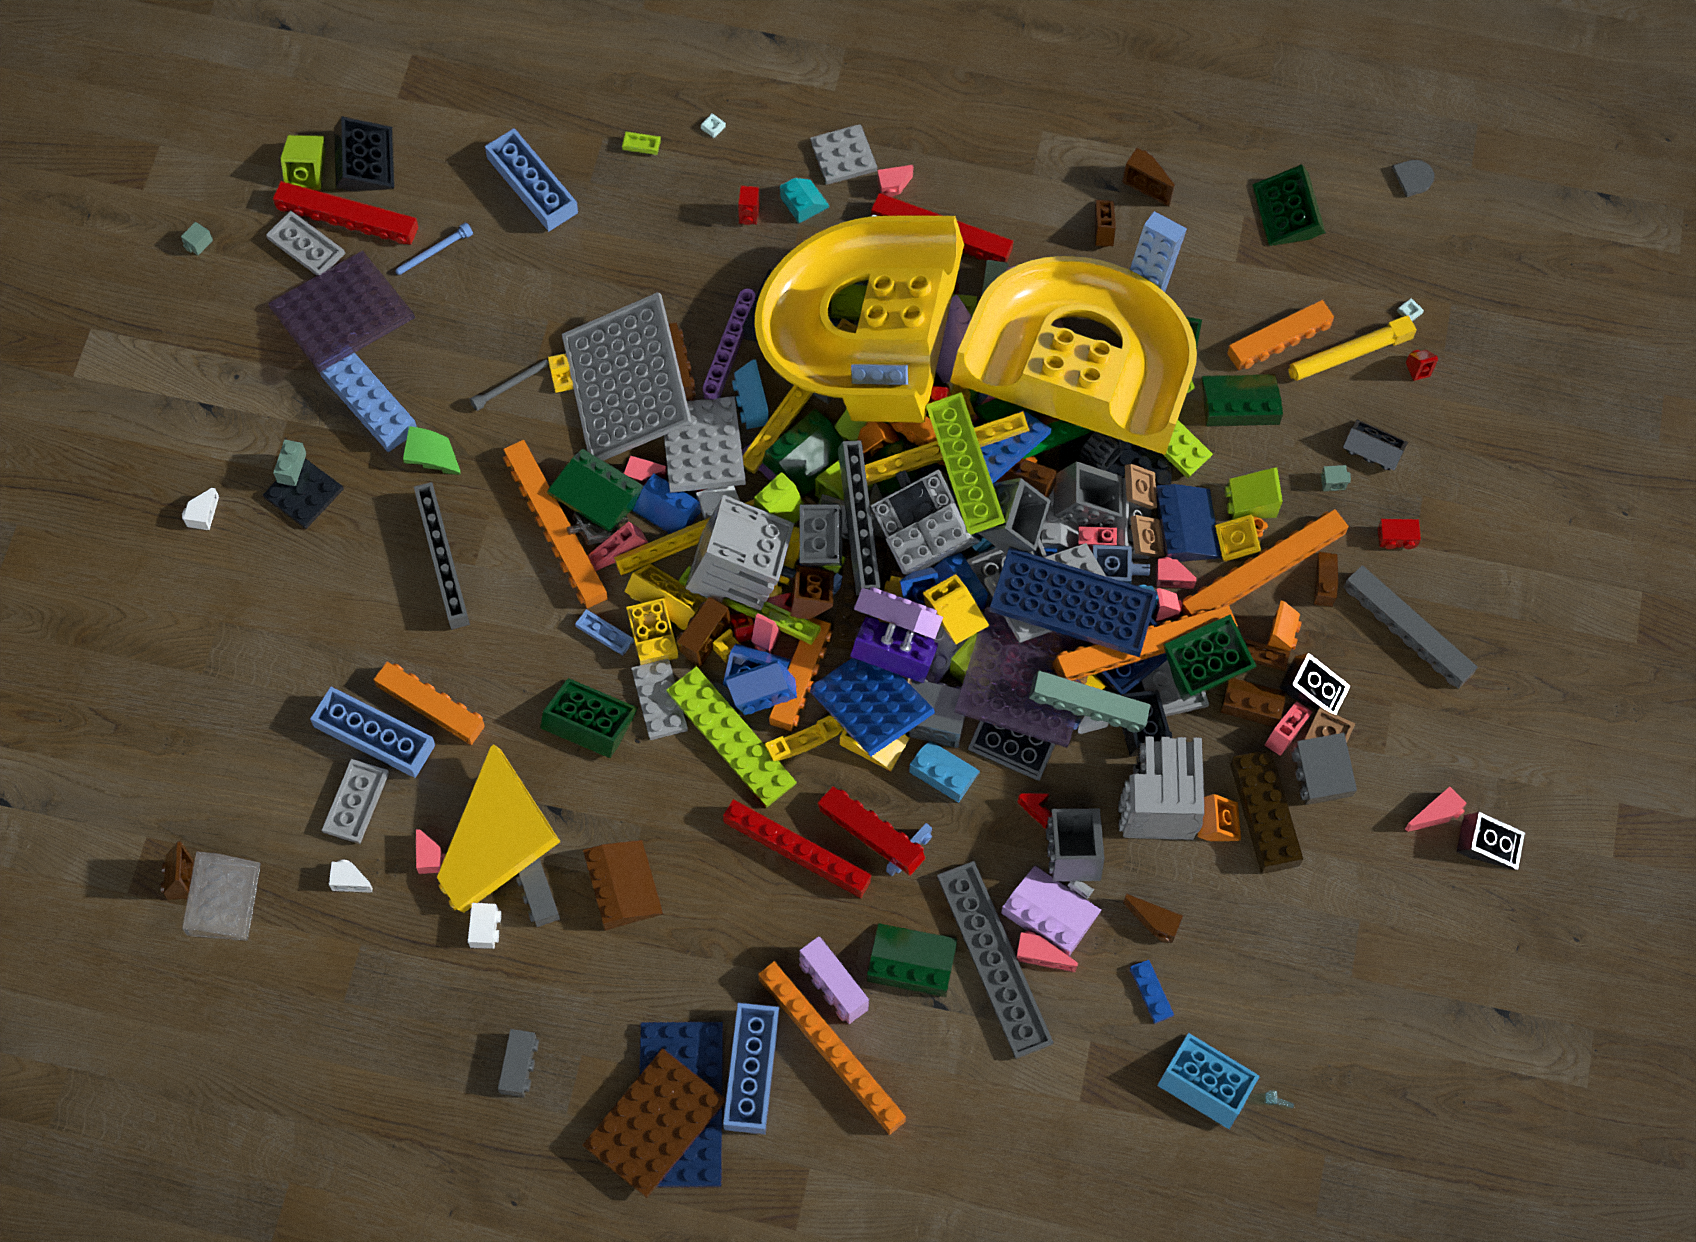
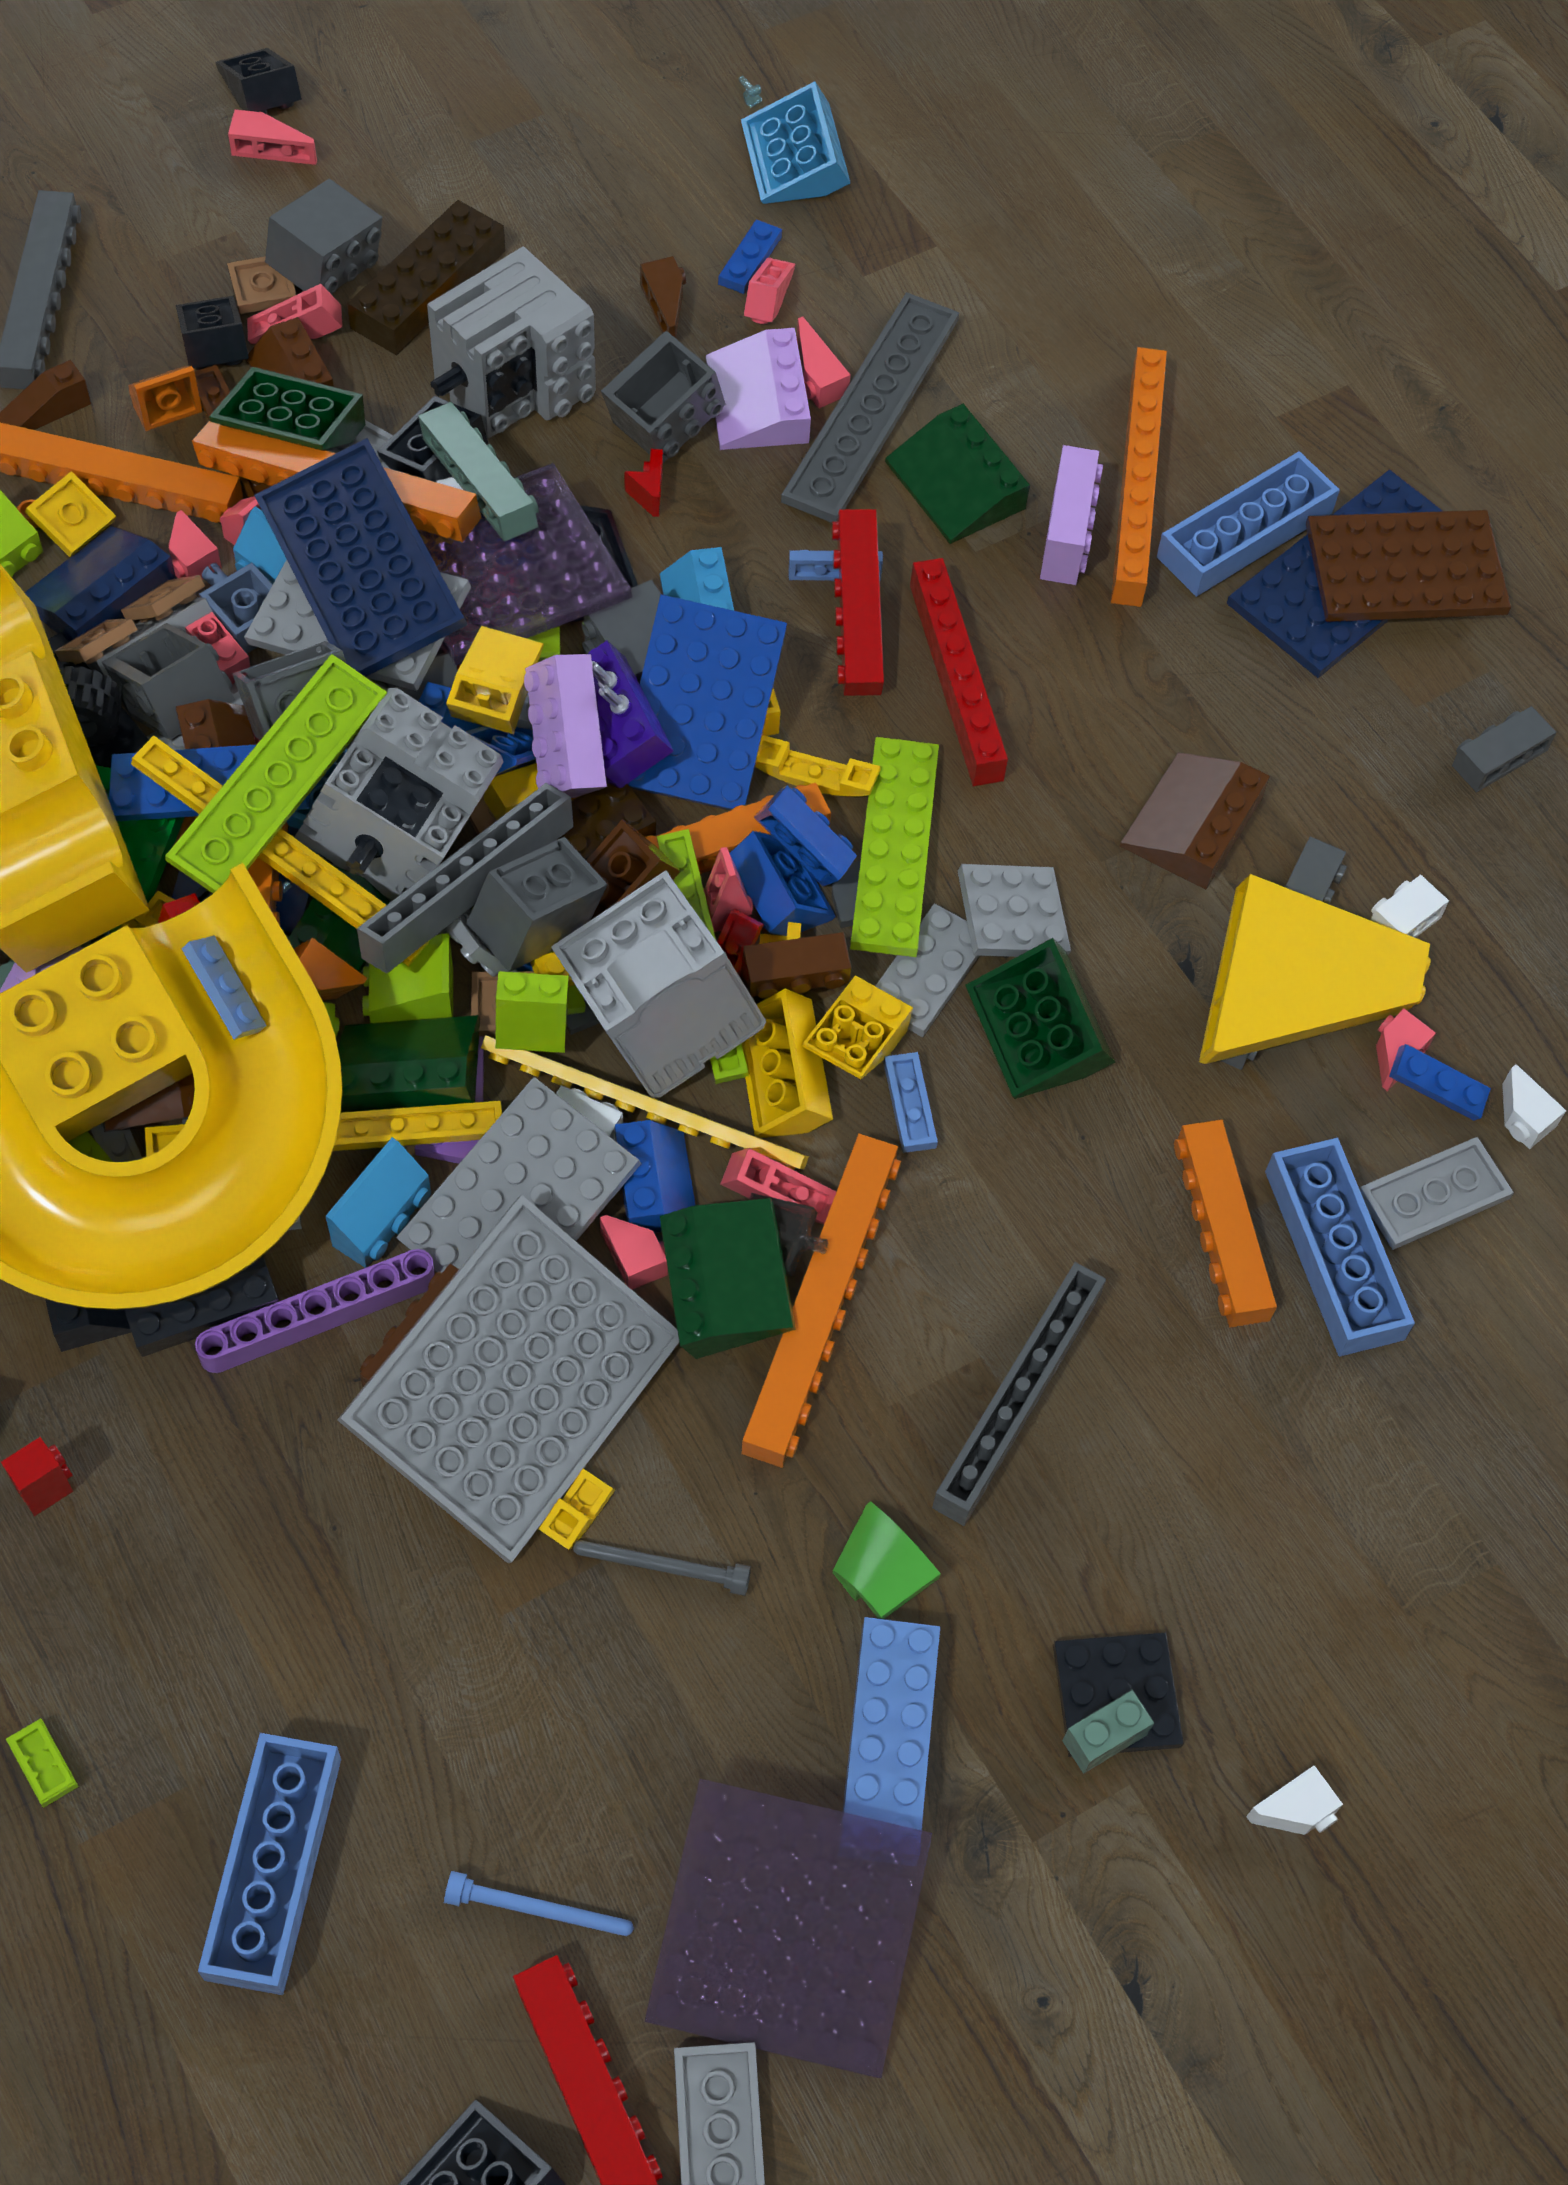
camera: 135 degrees left, 5 degrees down
(395, 848) = (1439, 1082): none -> blue plate
(650, 755) = (1011, 908): none -> light grey plate
(1117, 976) = (768, 290): none -> coral slope

